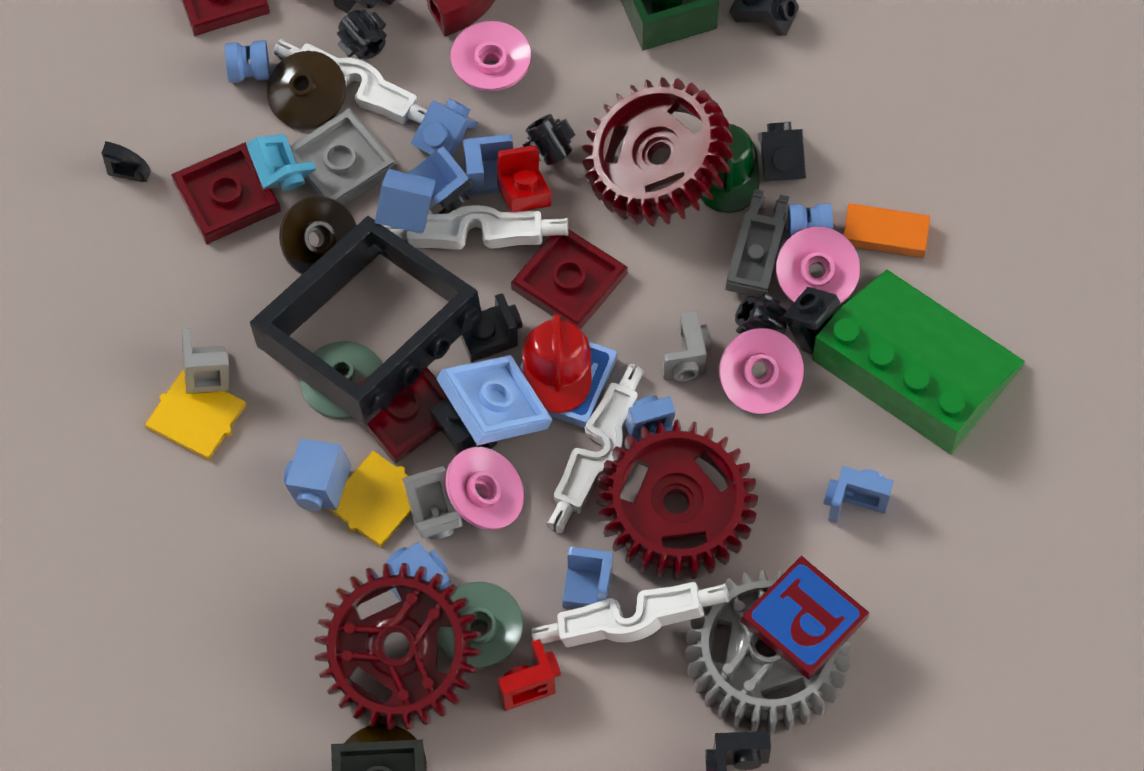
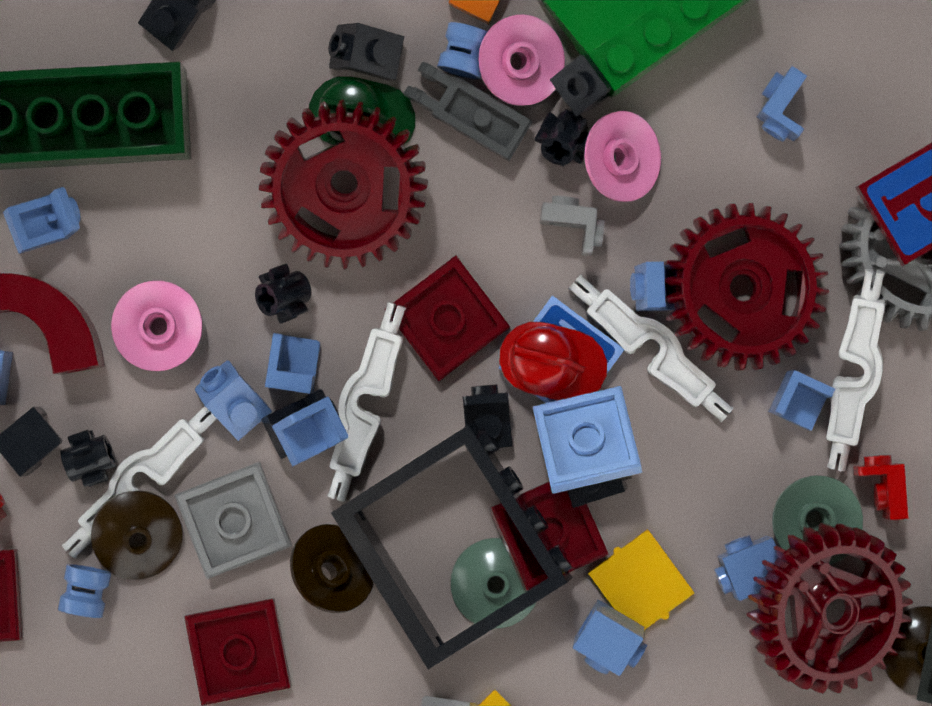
camera: 75 degrees left, 25 degrees up
(276, 163) = (229, 590): medium azure bracket -> none
(405, 201) = (329, 469): medium blue panel -> none
(430, 504) = (677, 531): light grey bracket -> none
(495, 481) = (684, 463): bright pink dish -> none
(521, 180) = (329, 336): red bracket -> none

